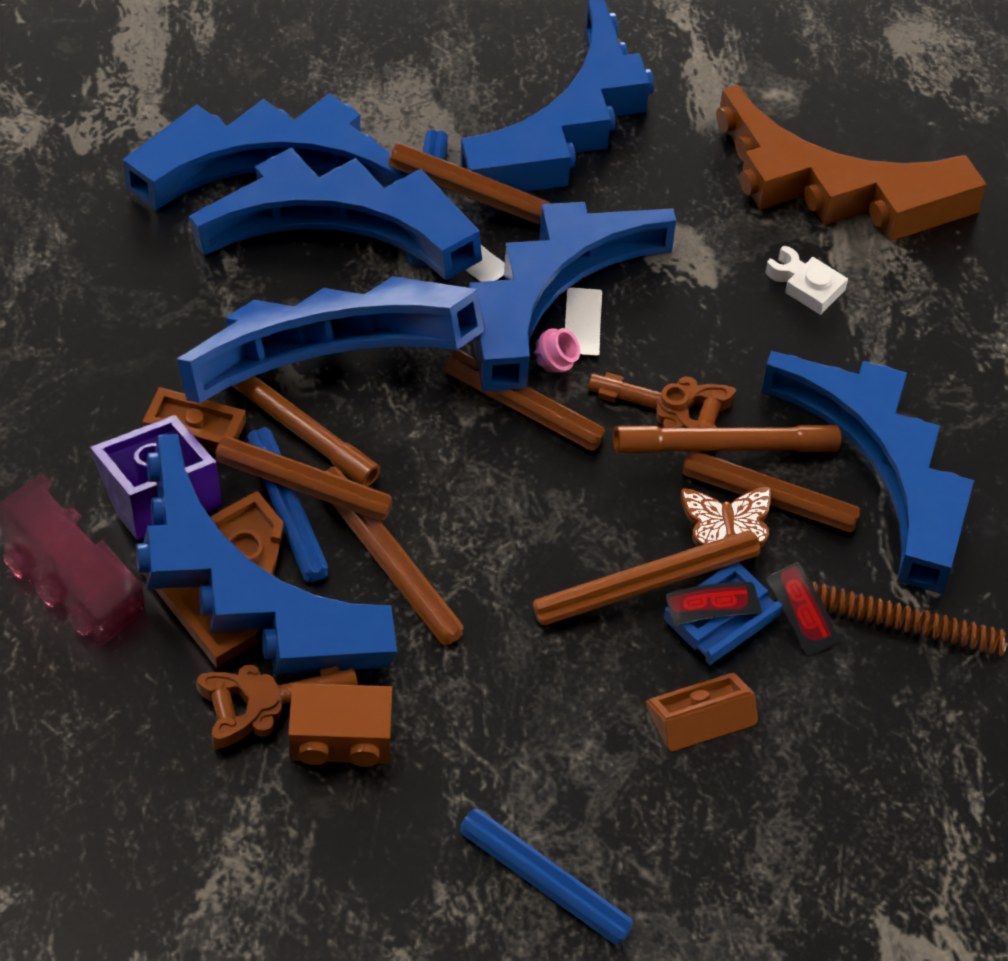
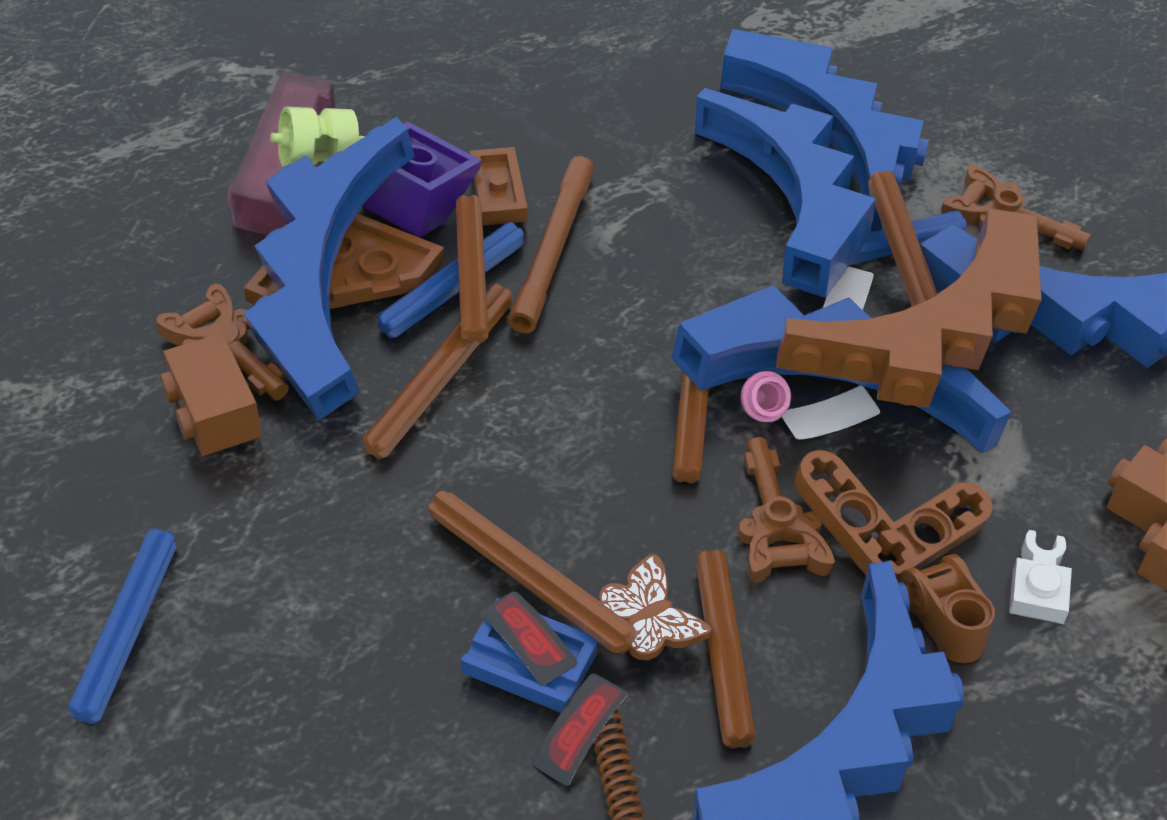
camera: 65 degrees right, 5 degrees down
(114, 513) = (314, 135): none -> yellowish green wheel
(330, 322) = (688, 248): blue arch -> none
(438, 100) = (1008, 198): none -> dark orange piece
(593, 193) = (954, 328): none -> dark orange arch
(655, 439) = (809, 643): dark orange piece -> none
(703, 711) = (399, 688): dark orange slope -> none
(746, 347) = (895, 536): none -> dark orange beam
(814, 336) = (951, 608): none -> dark orange piece

